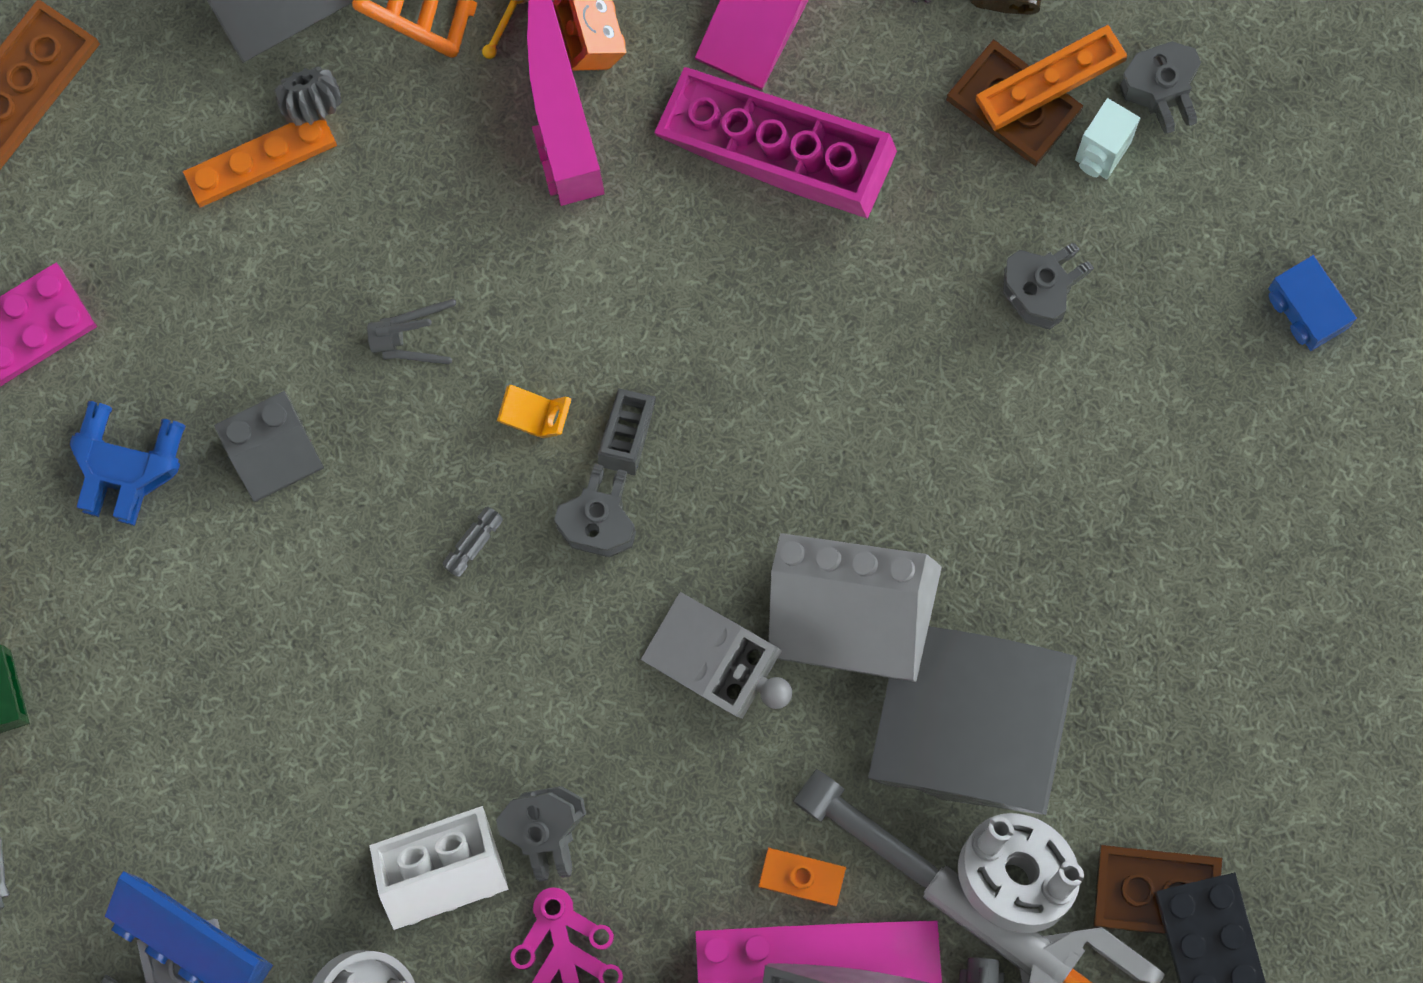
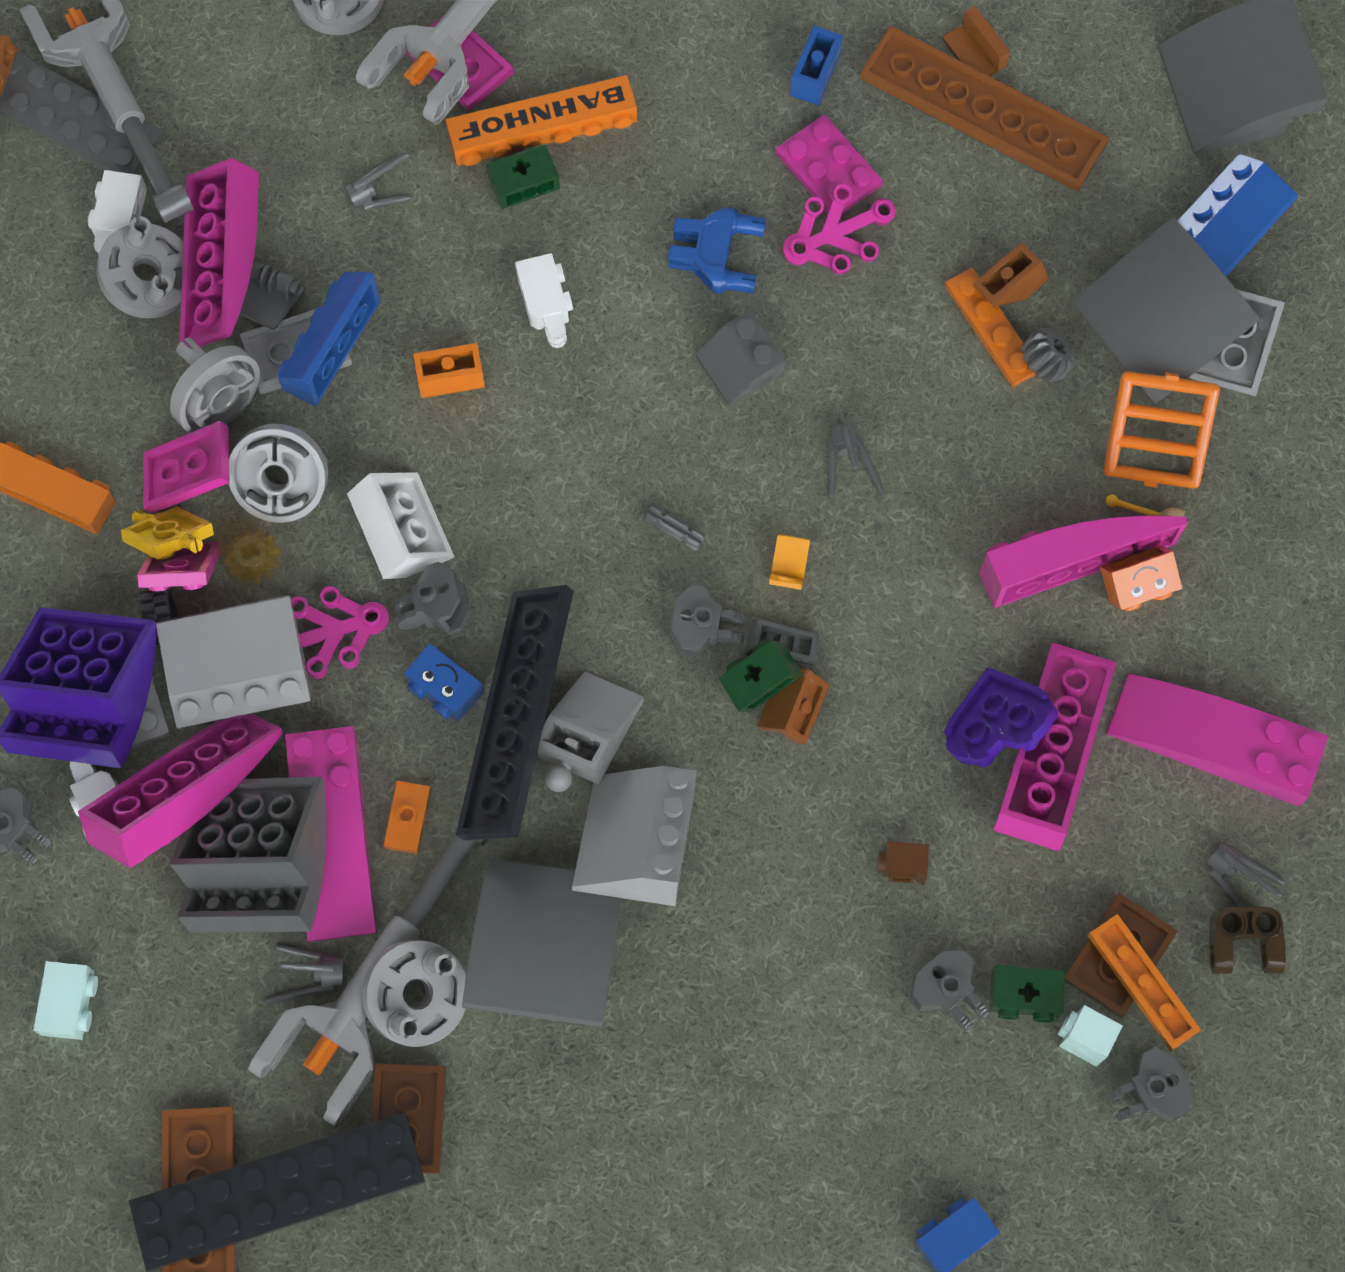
camera: 80 degrees right, 5 degrees down
(117, 325) = (834, 233): none -> dark pink plant
(159, 675) = (543, 296): none -> white hinge
(206, 125) = (1012, 277): none -> dark orange slope
(246, 795) = (449, 370): none -> orange brick
(645, 825) = (442, 683): none -> blue brick
(686, 469) = (777, 673): none -> dark green brick
(695, 736) = (515, 714): none -> black plate
(701, 424) = (795, 708): none -> dark orange panel
(740, 196) = (998, 715): none -> dark purple plate
(897, 317) = (904, 862): none -> reddish brown window
(1048, 181) = (1043, 983): none -> dark green brick

